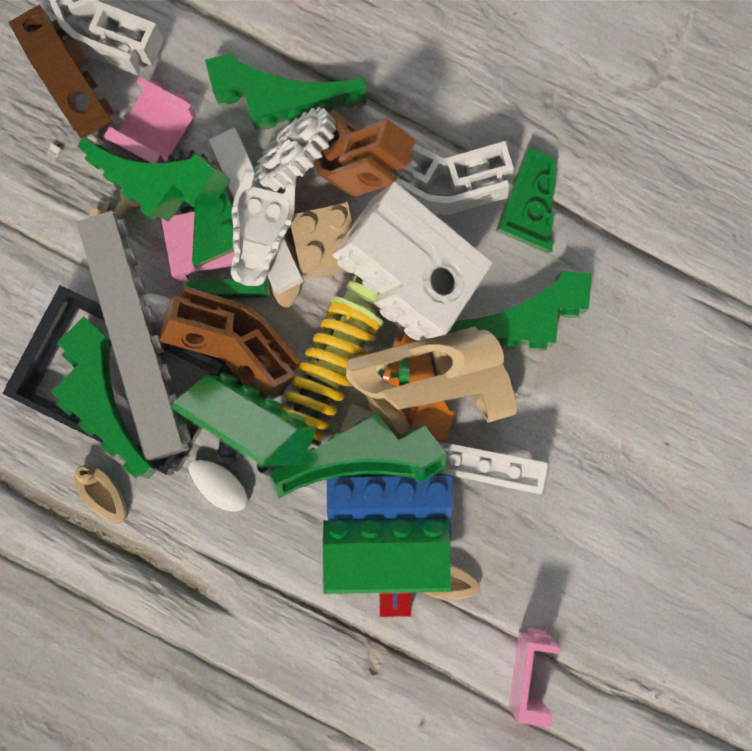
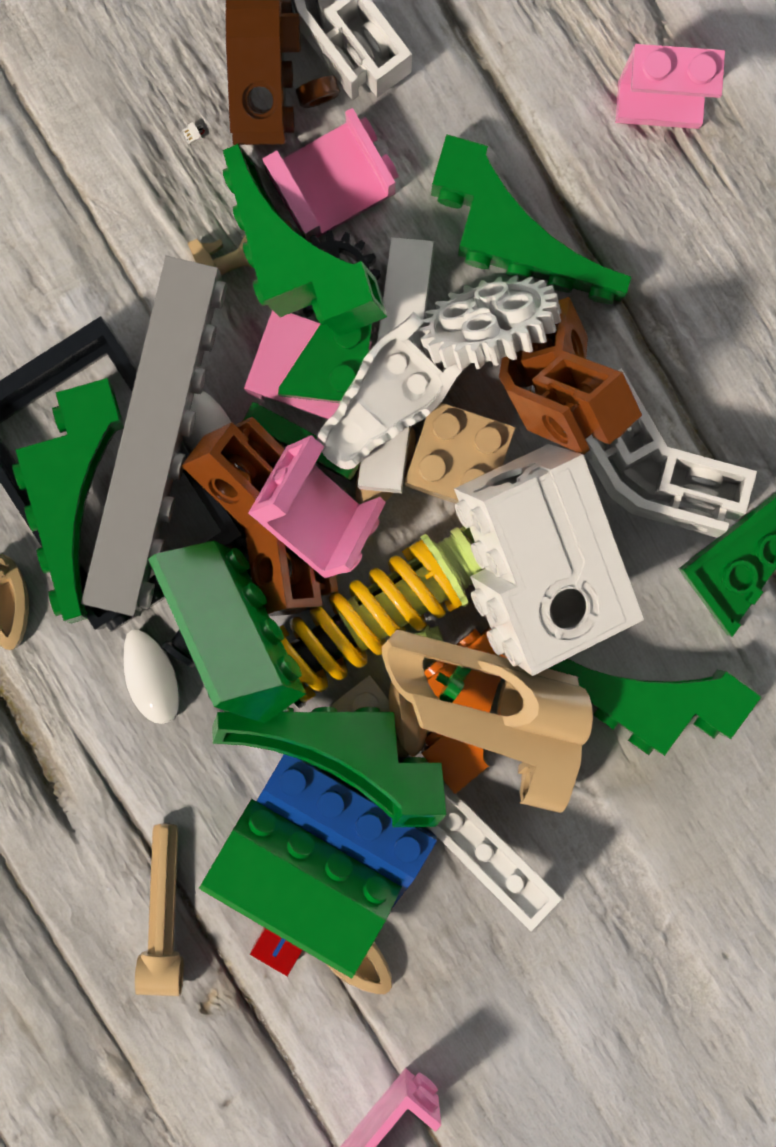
camera: 25 degrees right, 5 degrees up
(114, 81) = (317, 91): none -> reddish brown tile
(257, 323) = (314, 513): none -> bright pink panel
(330, 661) = (161, 968): none -> tan axle

